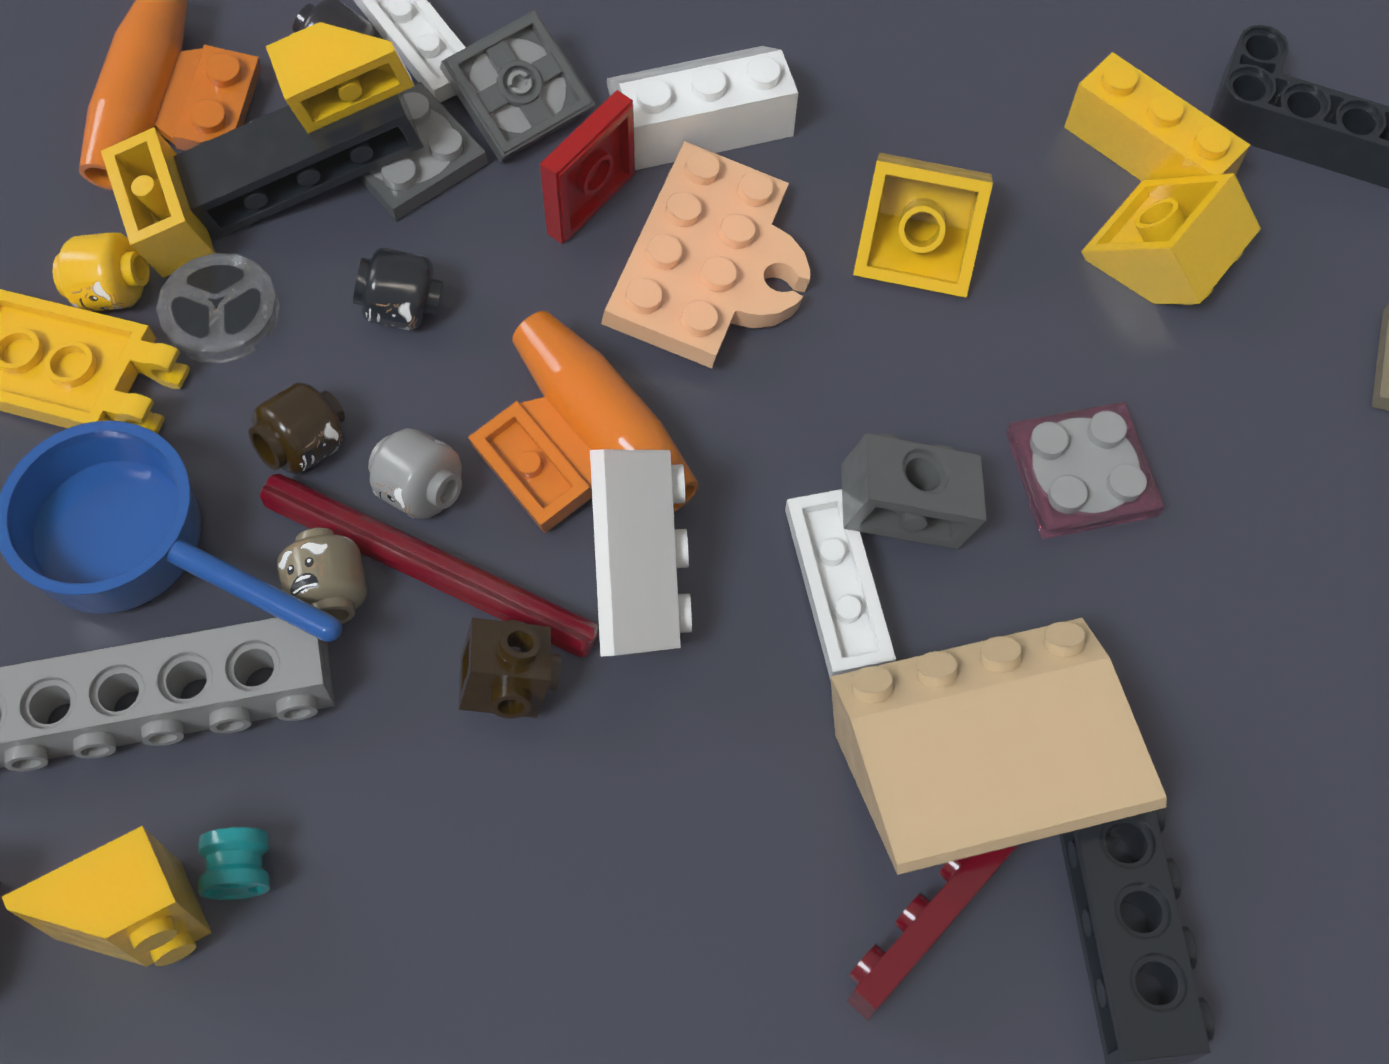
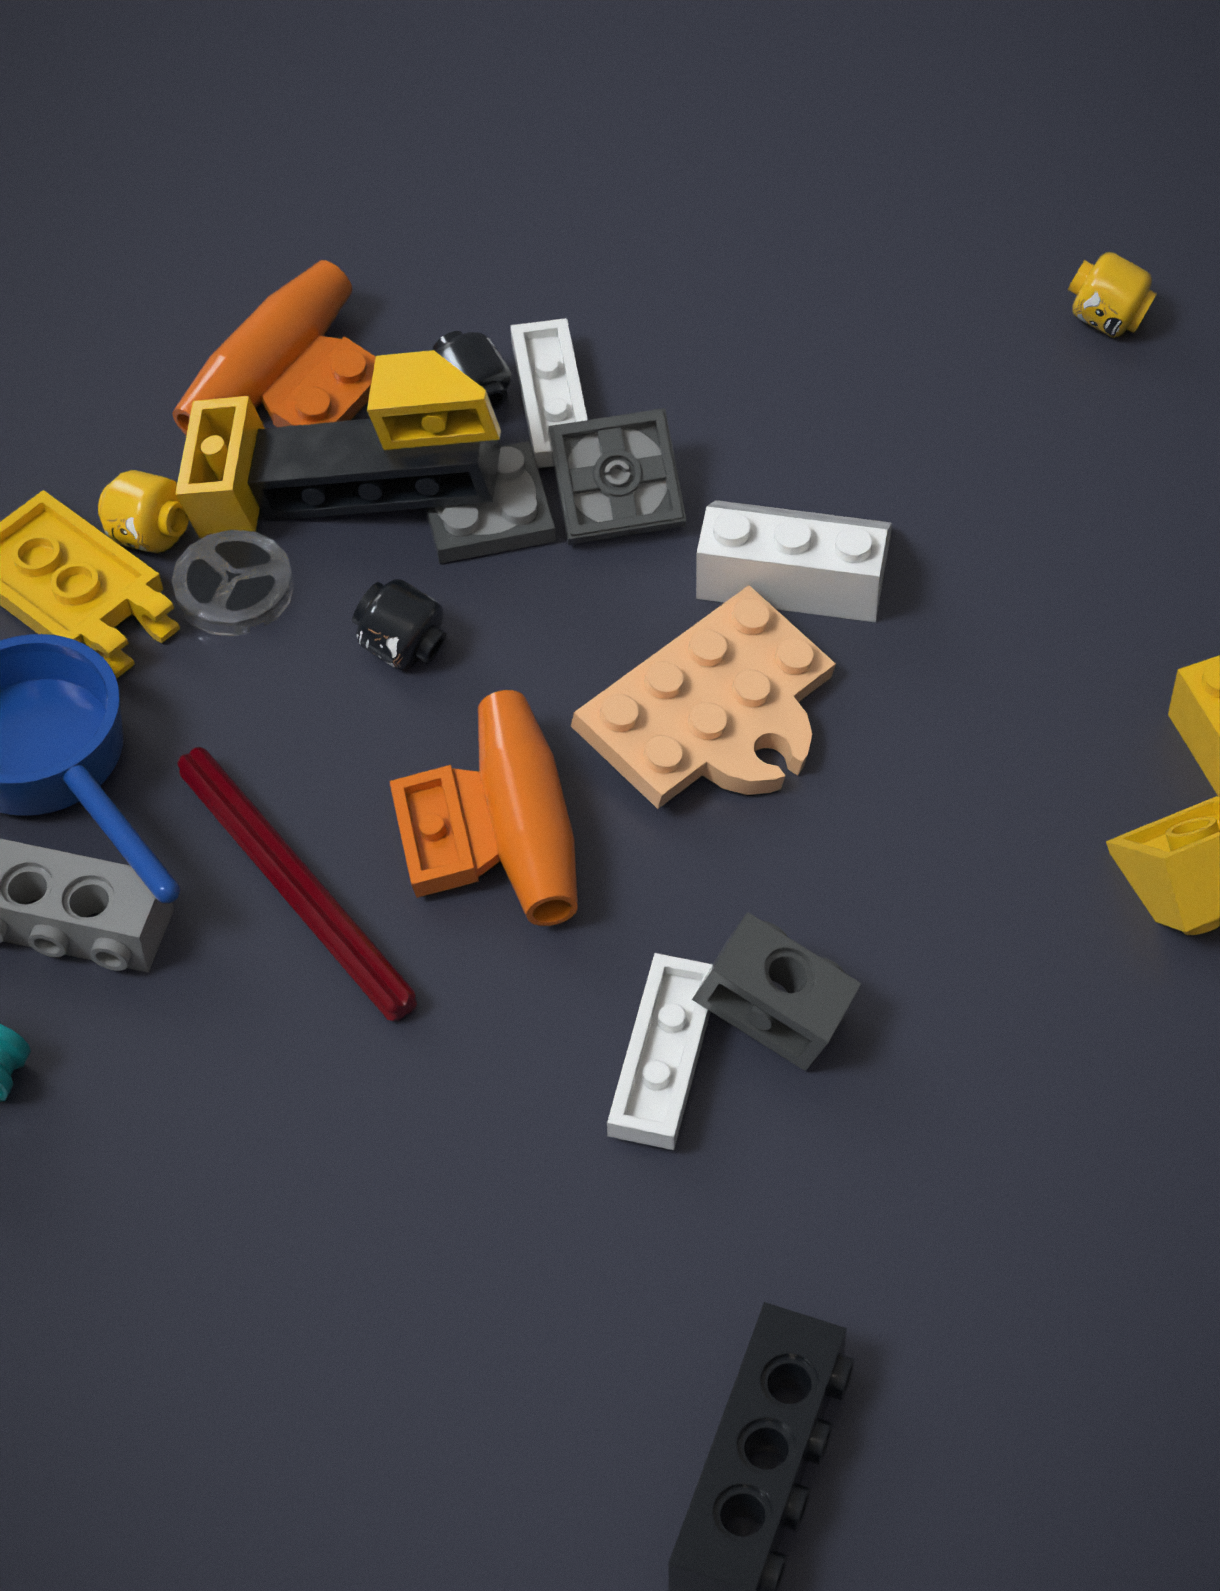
camera: 30 degrees right, 10 degrees down
(297, 428) = (241, 714): dark brown head -> none
(324, 572) = (195, 849): dark tan head -> none
(415, 473) = (321, 792): light grey head -> none
(507, 668) = (308, 994): dark brown brick -> none
(588, 167) = (634, 575): red tile -> none
(638, 551) = (471, 931): white slope -> none
(921, 926) = (578, 1375): dark red plate -> none
(923, 224) = (946, 750): yellow slope -> none
(993, 744) = (709, 1236): tan slope -> none
(1084, 470) = (975, 1047): light grey piece -> none

